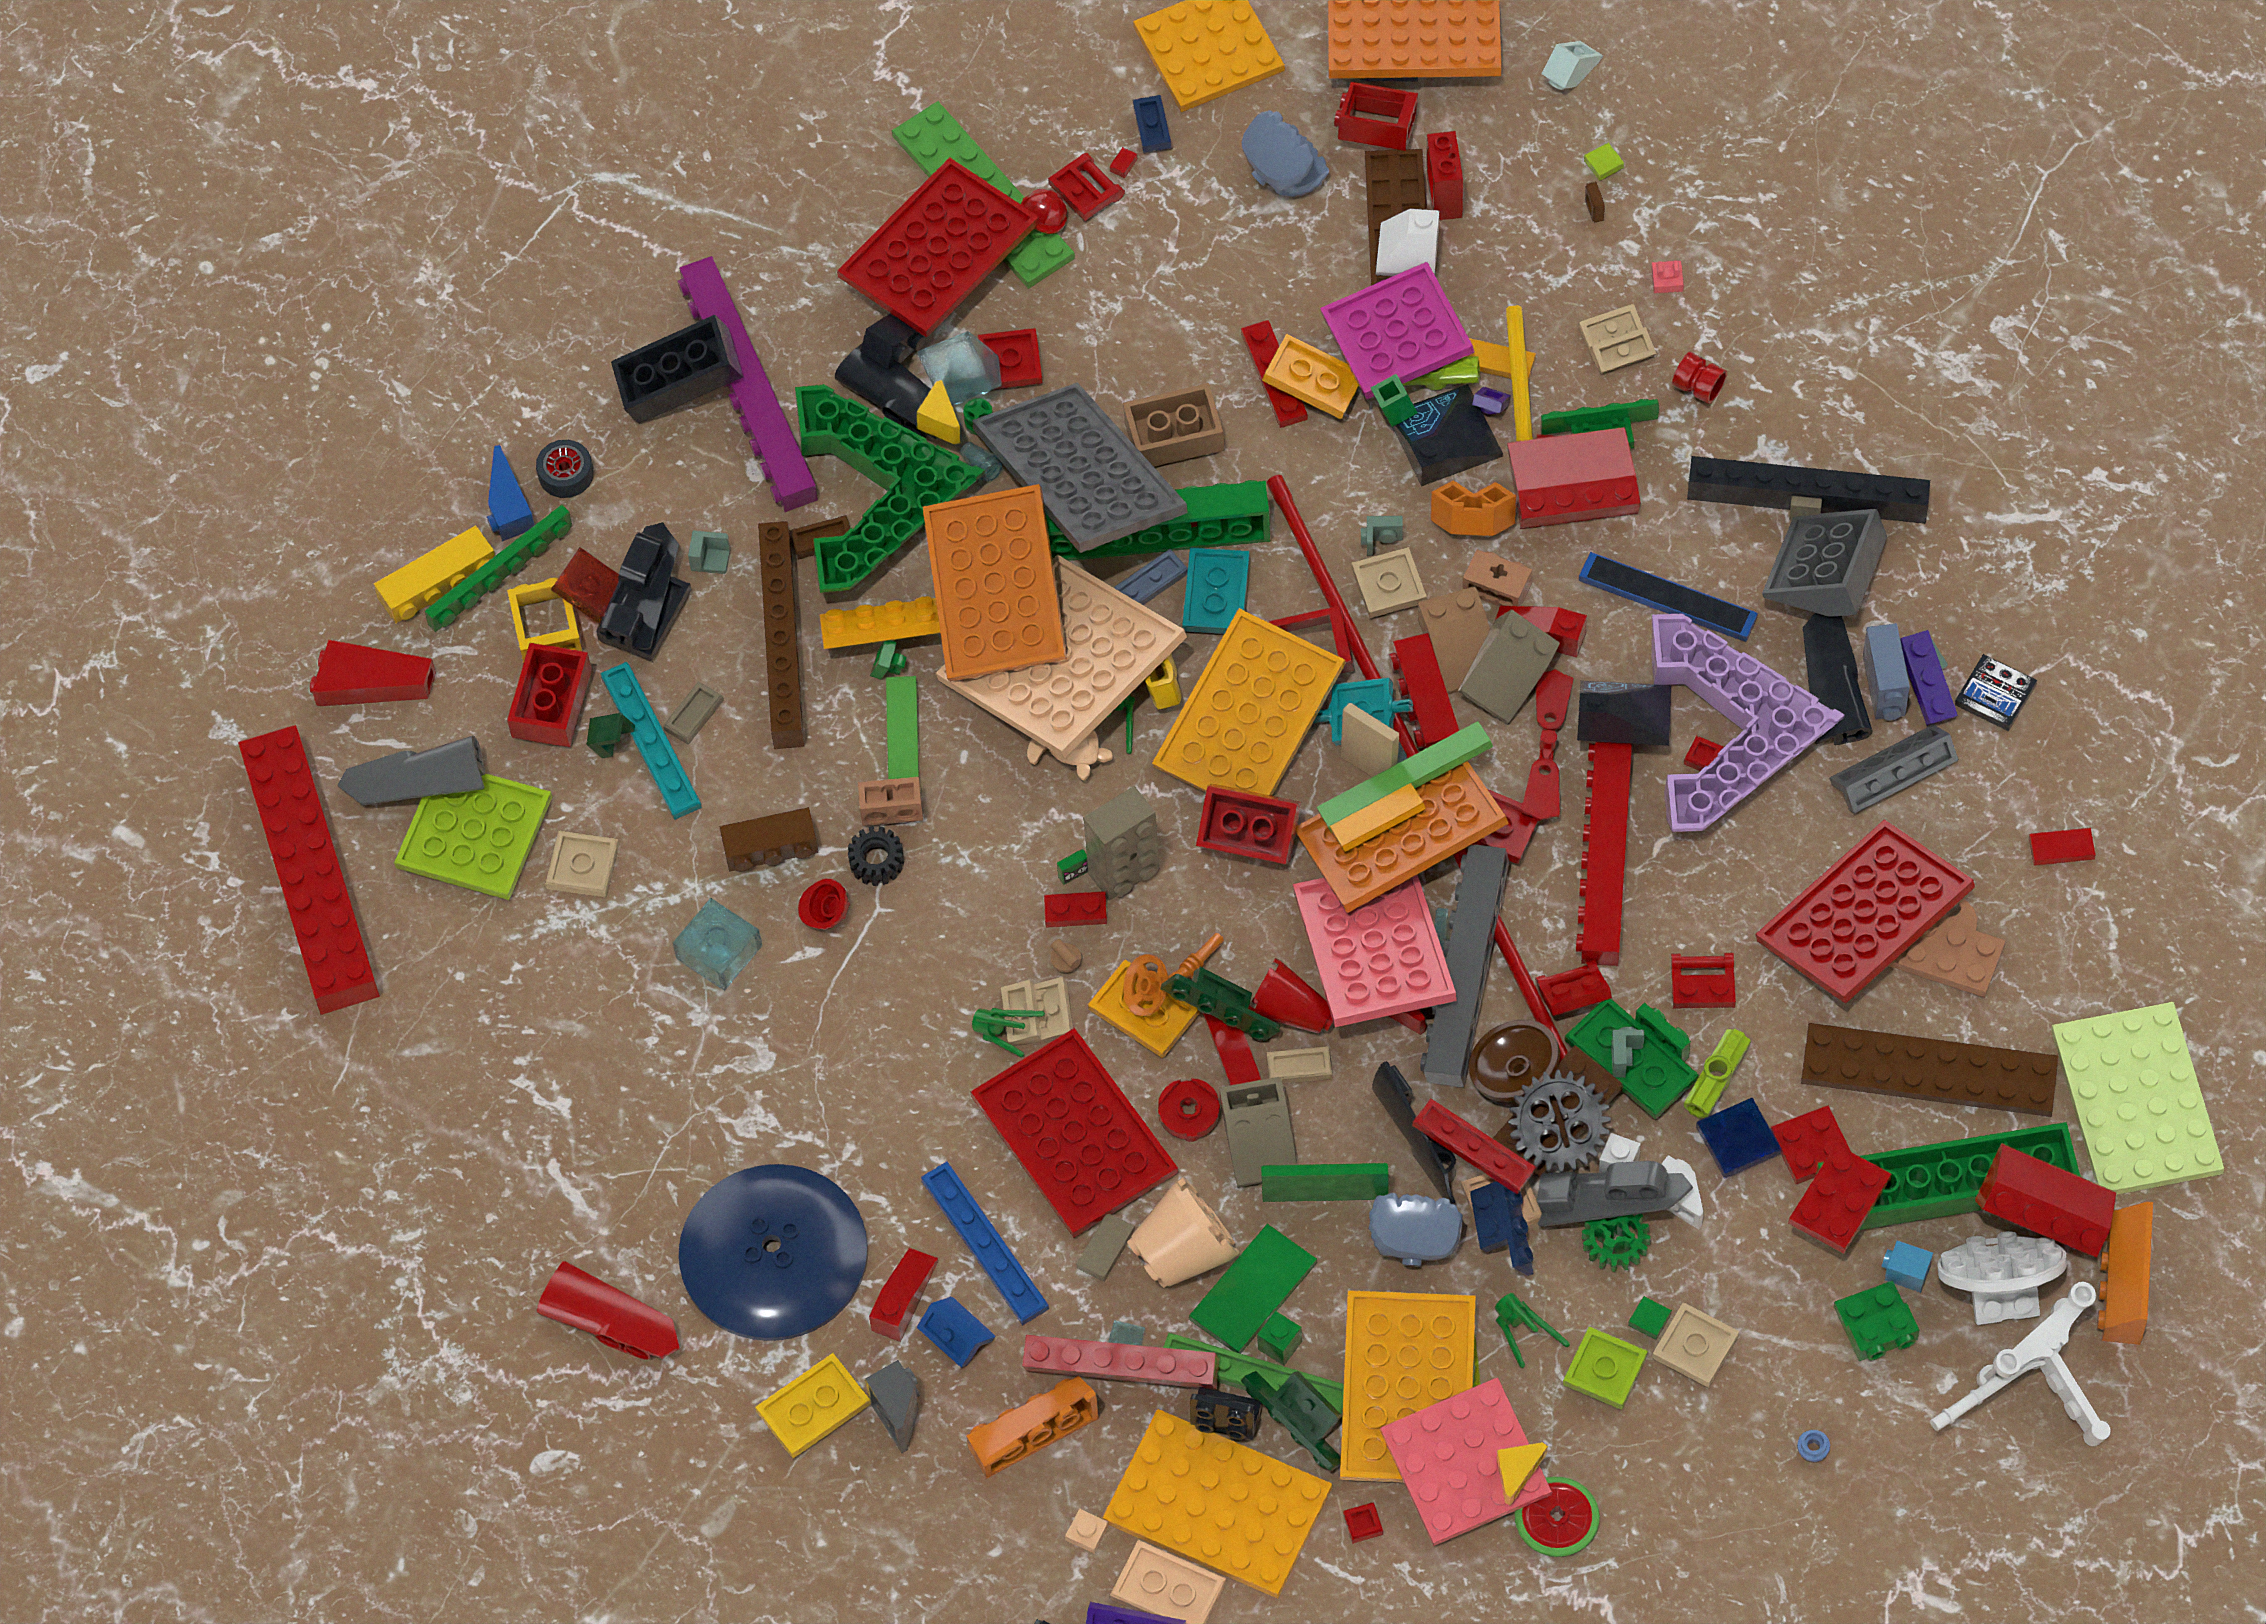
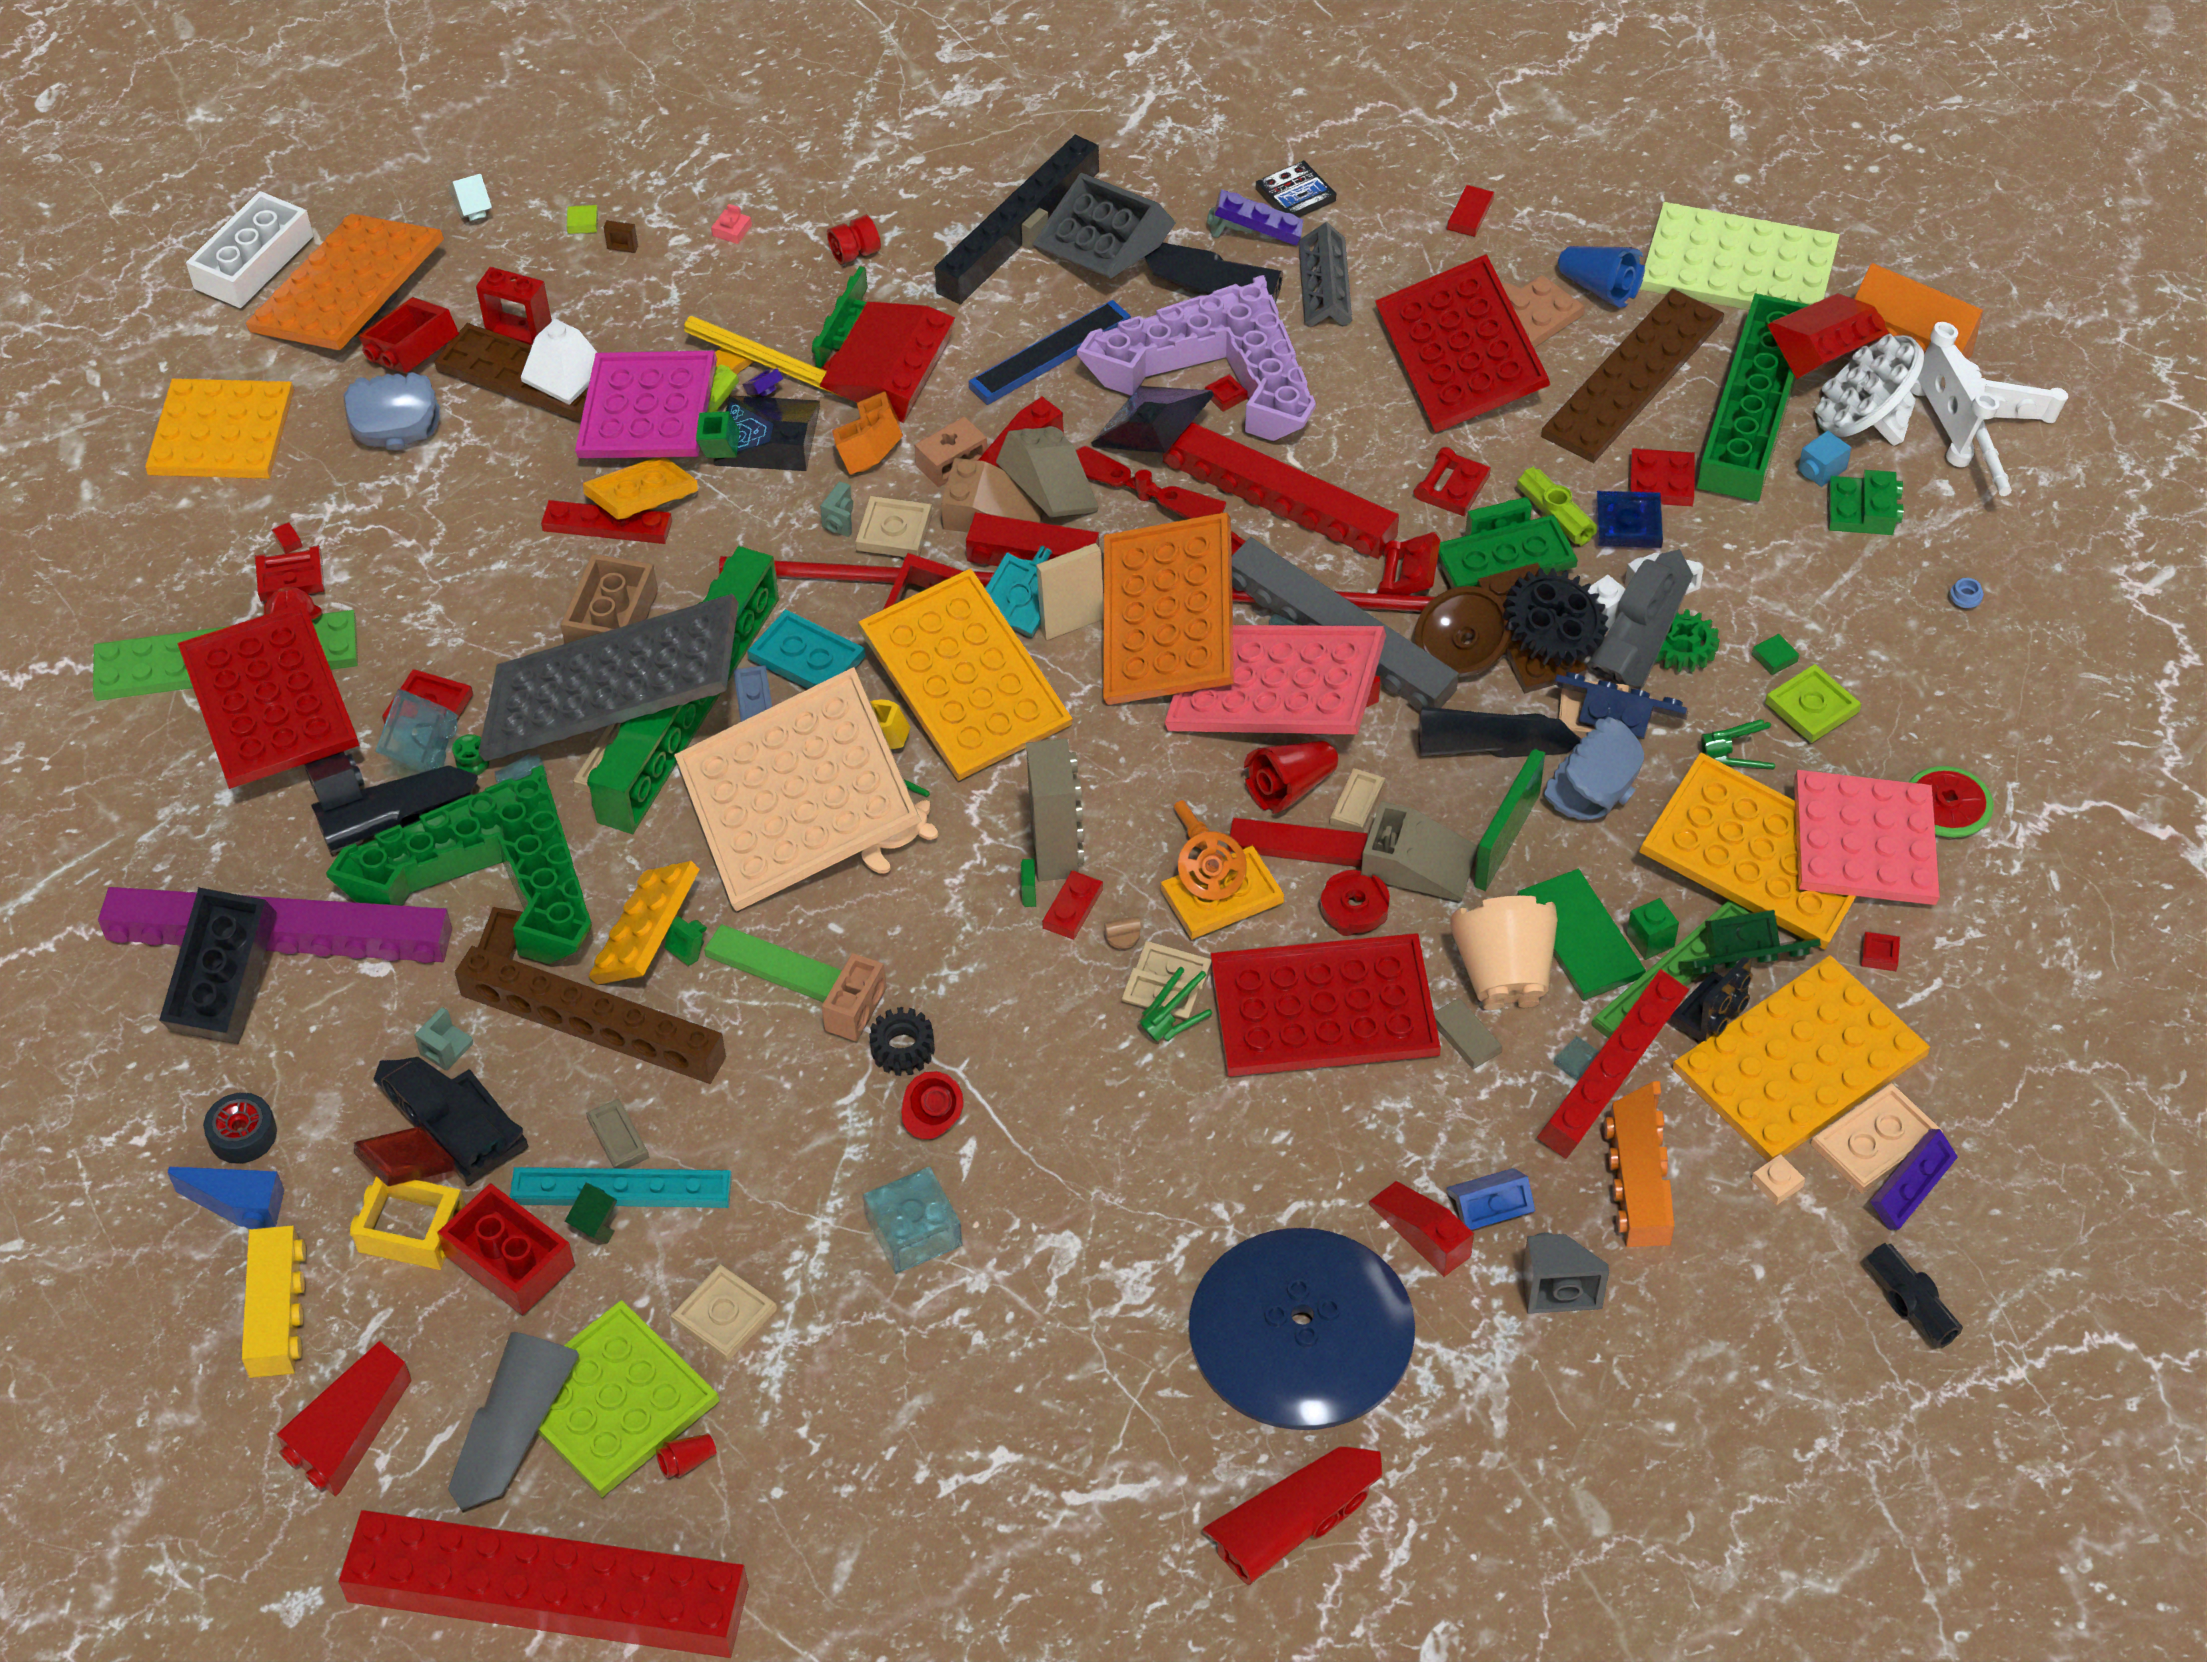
camera: 65 degrees left, 10 degrees down
(452, 900) = (684, 1454): none -> red cone
(492, 573) = (316, 1250): green plate -> none
(769, 839) = (820, 1125): reddish brown brick -> none
(813, 1405) = (1510, 1361): yellow plate -> none
(937, 415) = (457, 768): yellow slope -> none
(984, 1243) = (1401, 1133): blue tile -> none
(994, 582) = (688, 792): orange plate -> none
(1151, 123) = (267, 497): dark blue plate -> none
(1222, 1000) = (1268, 815): dark green bracket -> none
(1248, 823) = (1089, 714): red brick -> none
(1377, 817) = (1151, 617): light orange tile -> none
(1414, 770) = (1120, 583): bright green tile -> none
(1474, 1146) = (1546, 684): red tile -> none
(1517, 1466) = (1911, 790): yellow slope -> none
(1616, 338) = (766, 282): tan slope -> none
(1621, 1047) = (1505, 548): sand green bracket -> none
(1695, 1344) = (1823, 631): tan plate -> none
(1839, 1198) = (1749, 459): red plate -> none
(1886, 671) = (1239, 232): sand blue brick -> none
(2033, 990) = (1605, 271): none -> blue cone

